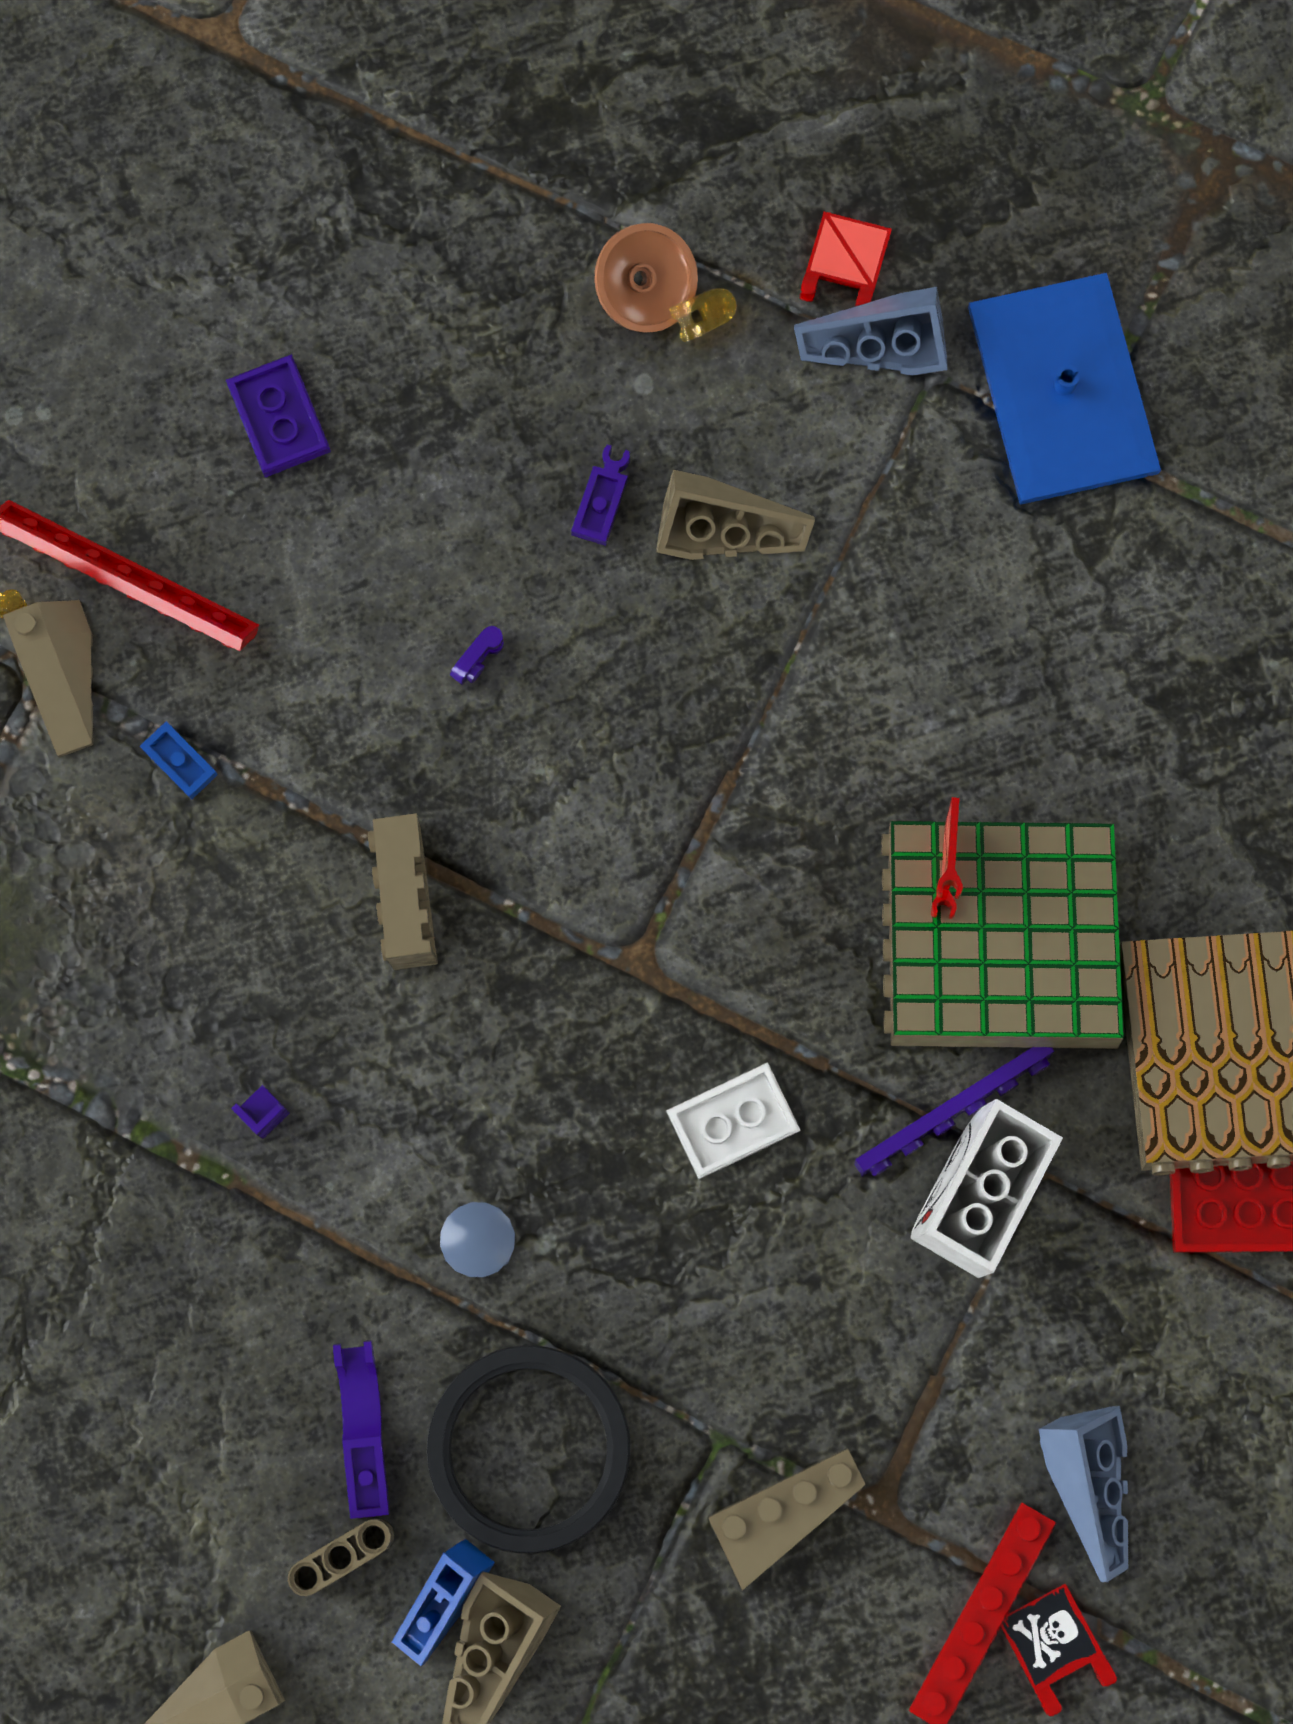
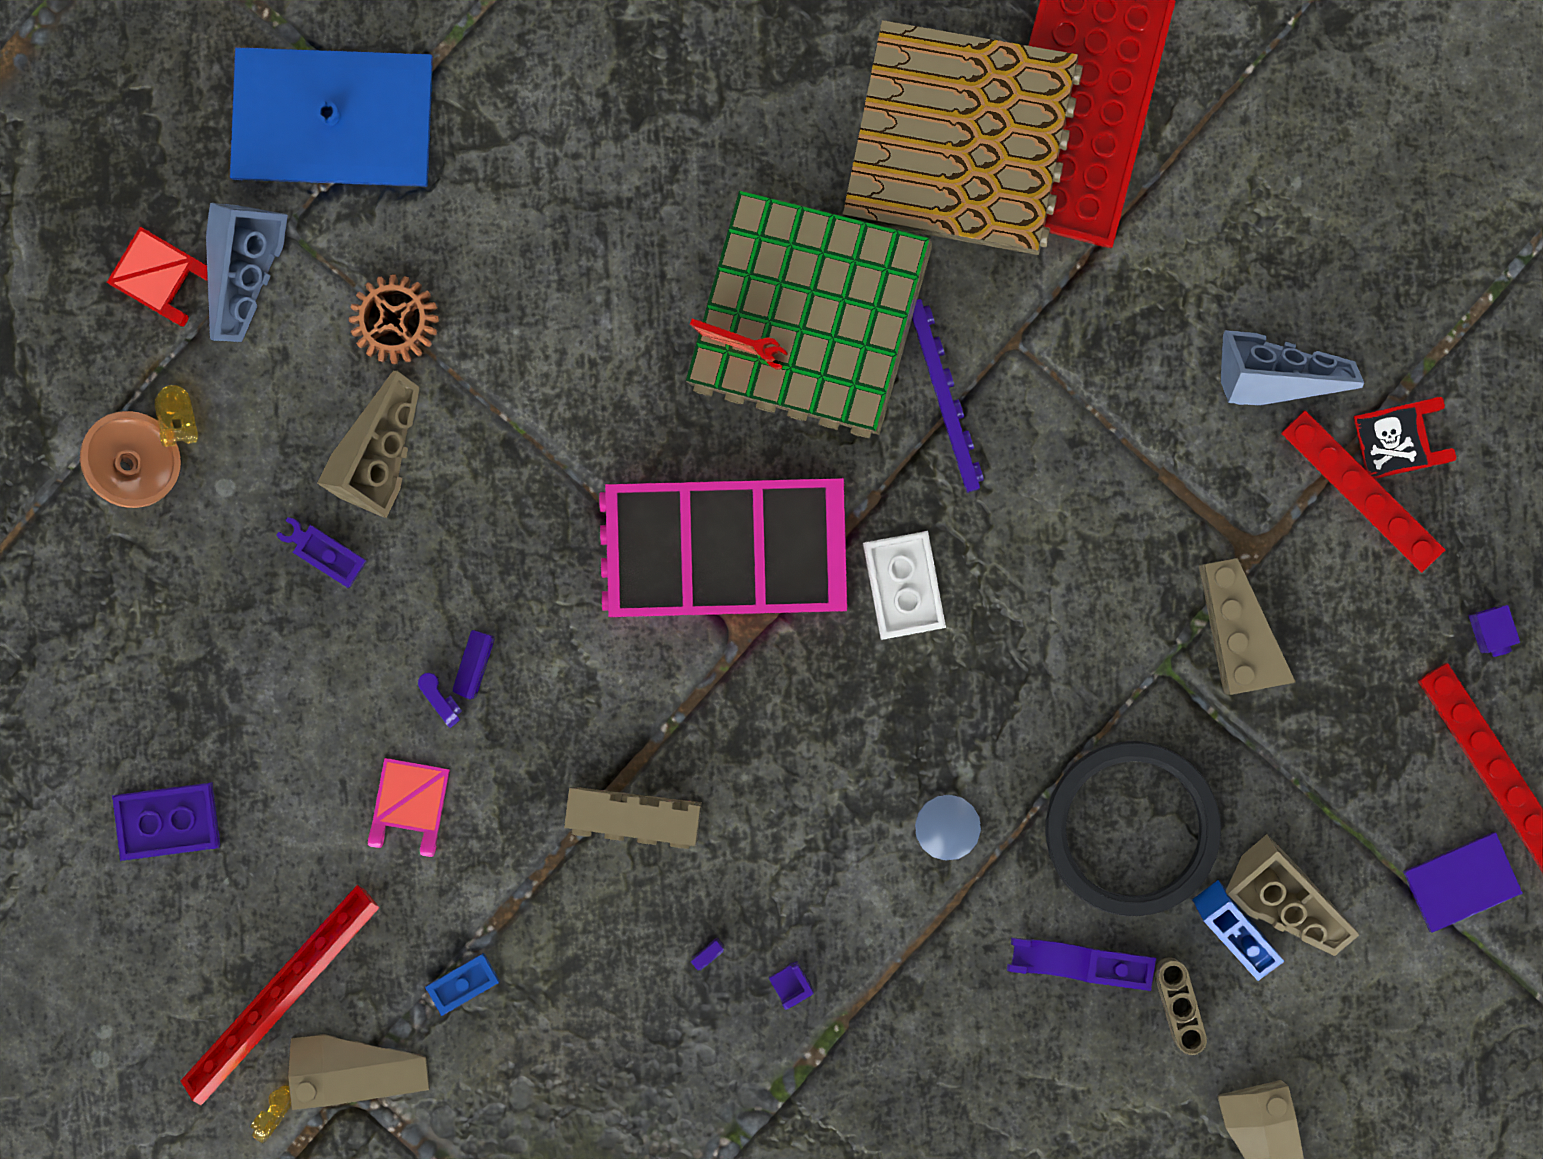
camera: 75 degrees left, 10 degrees up
(272, 1011) = (707, 954): none -> dark purple tile
(362, 654) = (410, 799): none -> coral flag
(523, 684) = (473, 664): none -> dark purple slope
(721, 914) = (724, 547): none -> clear smoke window
(848, 485) = (381, 327): none -> nougat gear
(985, 1188) = (1023, 391): white brick -> none

